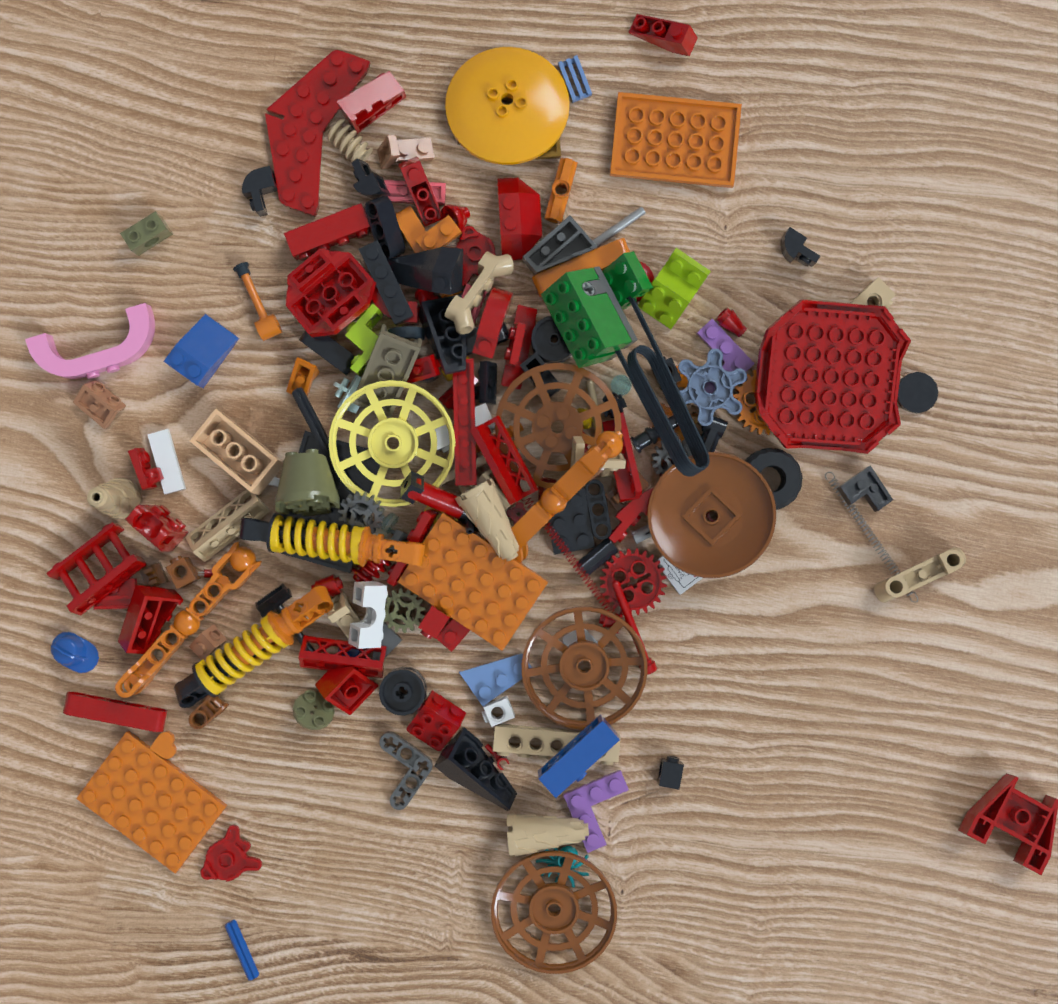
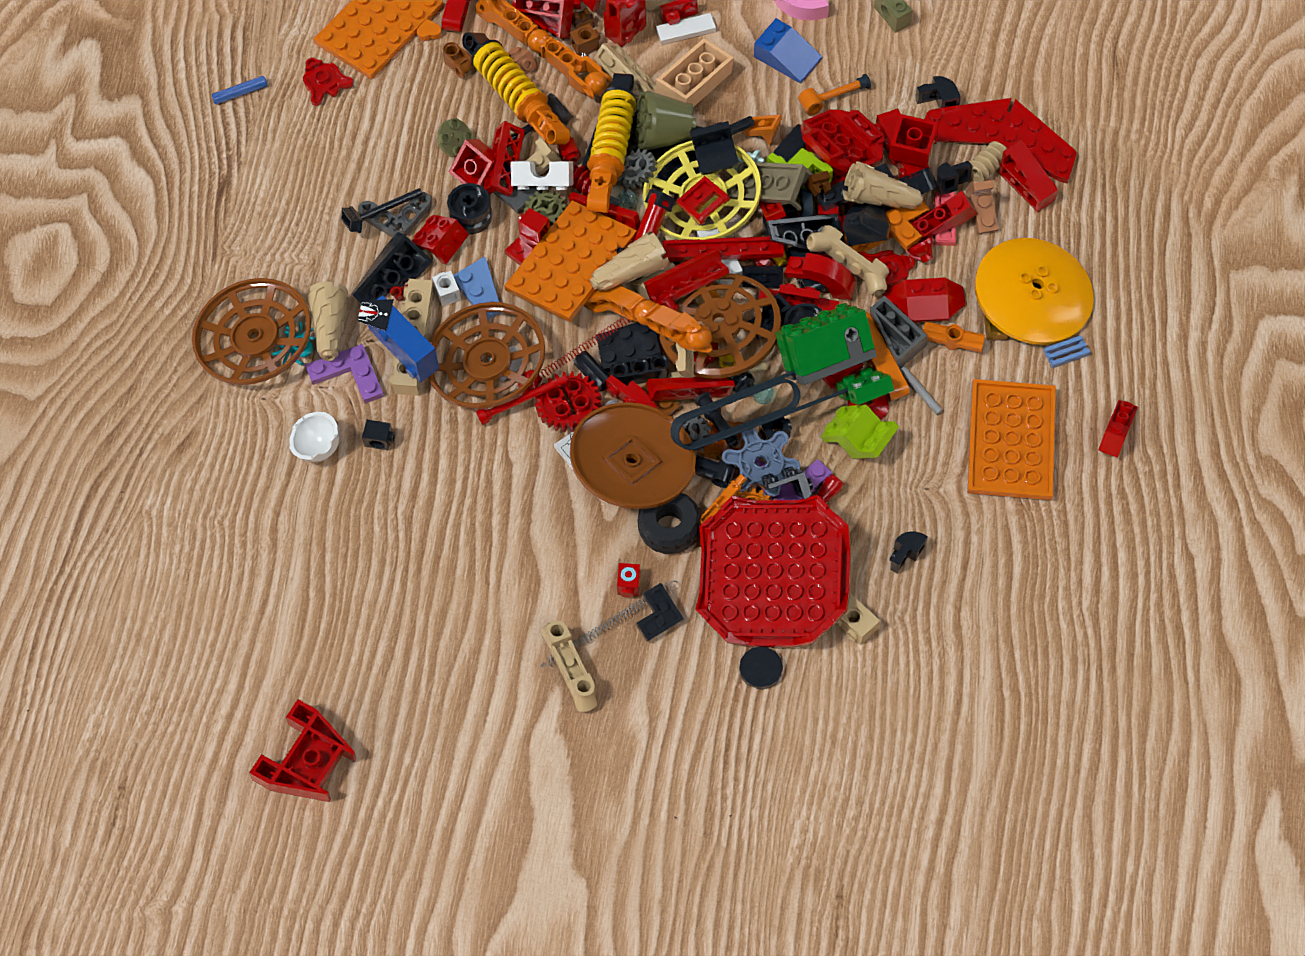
camera: 90 degrees right, 25 degrees down
(334, 216) = (913, 140): none -> red brick
(350, 428) = (714, 148): none -> black bracket
(388, 319) = (818, 181): none -> reddish brown tile
(399, 258) = (876, 188): none -> tan cone
(406, 447) = (698, 196): none -> red plate
(417, 814) = (353, 220): none -> black piece
(539, 481) = (666, 300): none -> red brick
(560, 784) = (376, 313): none -> black sticker
(679, 838) = (314, 437): none -> white cylinder
(741, 362) = (801, 484): none -> black bracket
(753, 426) = (726, 494): none -> orange piece
(830, 518) = (628, 580): none -> red brick

